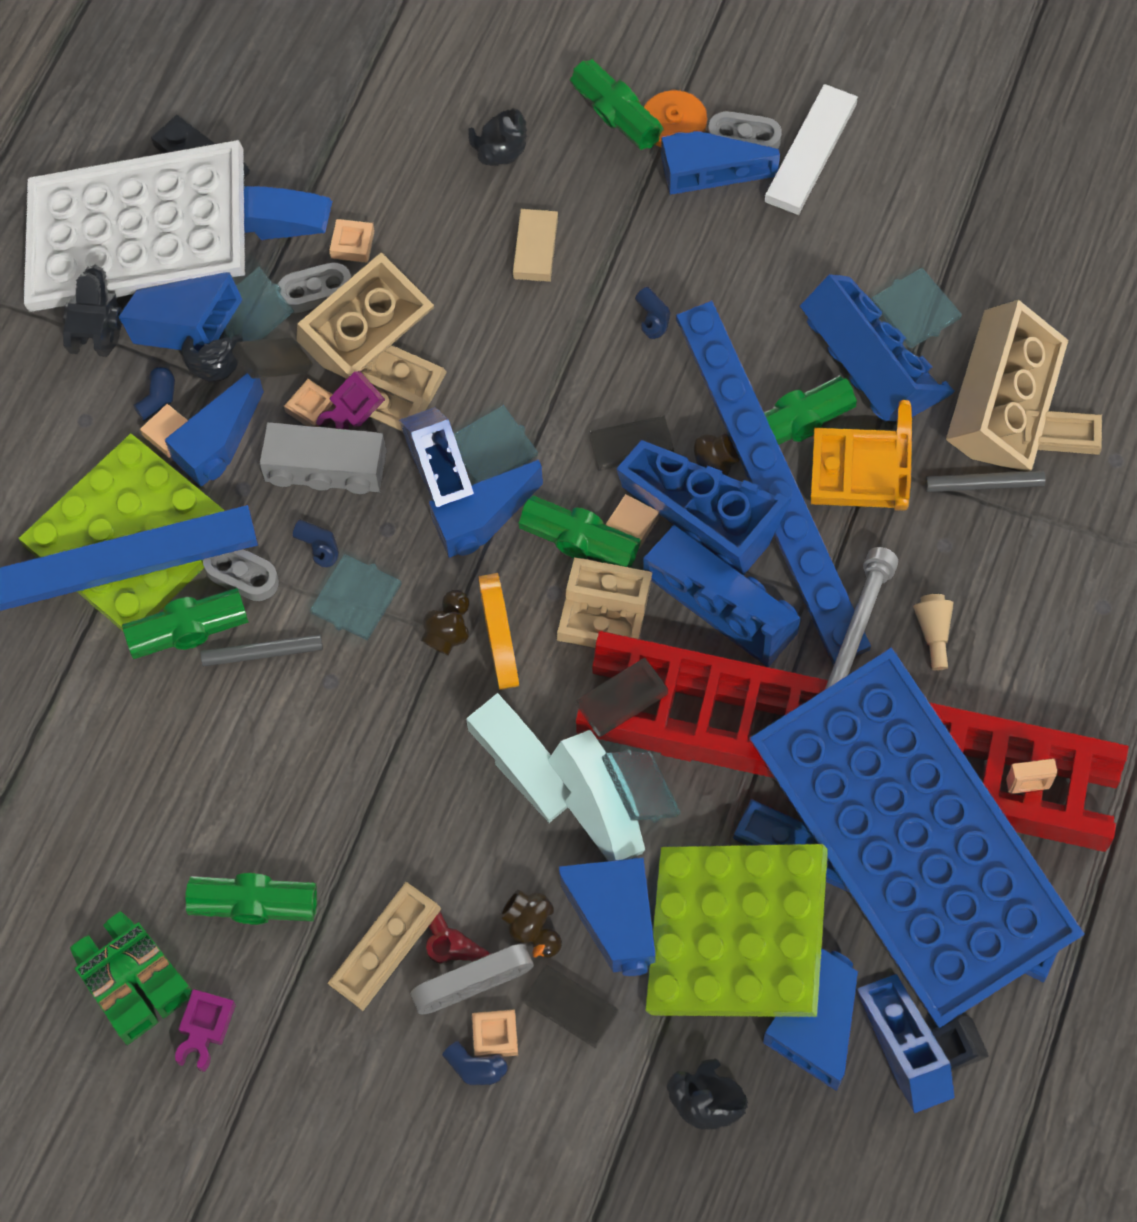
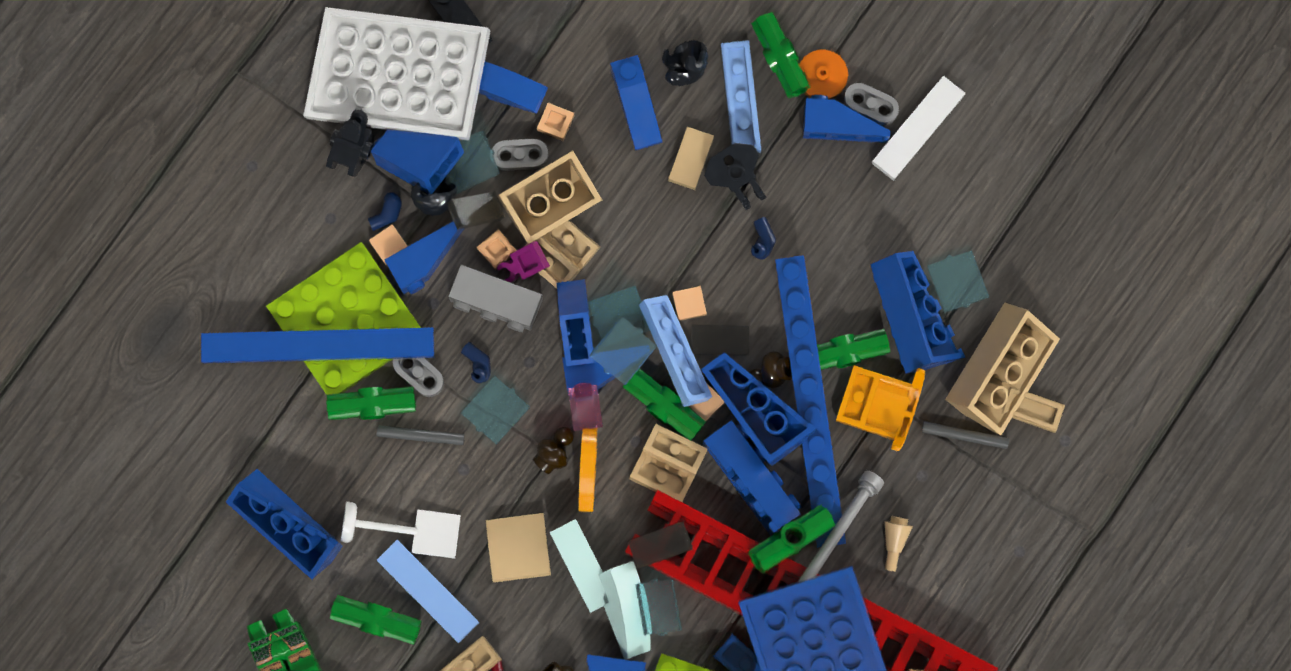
camera: 10 degrees right, 15 degrees up
(113, 807) = (284, 523): none -> blue wedge
(306, 771) = (433, 532): none -> white piece
(317, 846) = (428, 591): none -> light blue tile
(428, 758) = (518, 547): none -> tan slope
(447, 194) = (636, 102): none -> blue slope
(474, 550) = (585, 406): none -> clear pink brick
(507, 469) = (623, 350): none -> clear light blue piece
(576, 463) = (675, 350): none -> light blue plate
(579, 166) = (740, 93): none -> light blue tile
(579, 409) = (689, 303): none -> light nougat tile
(598, 242) = (738, 173): none -> black hinge
(797, 644) = (778, 548): none -> green piece

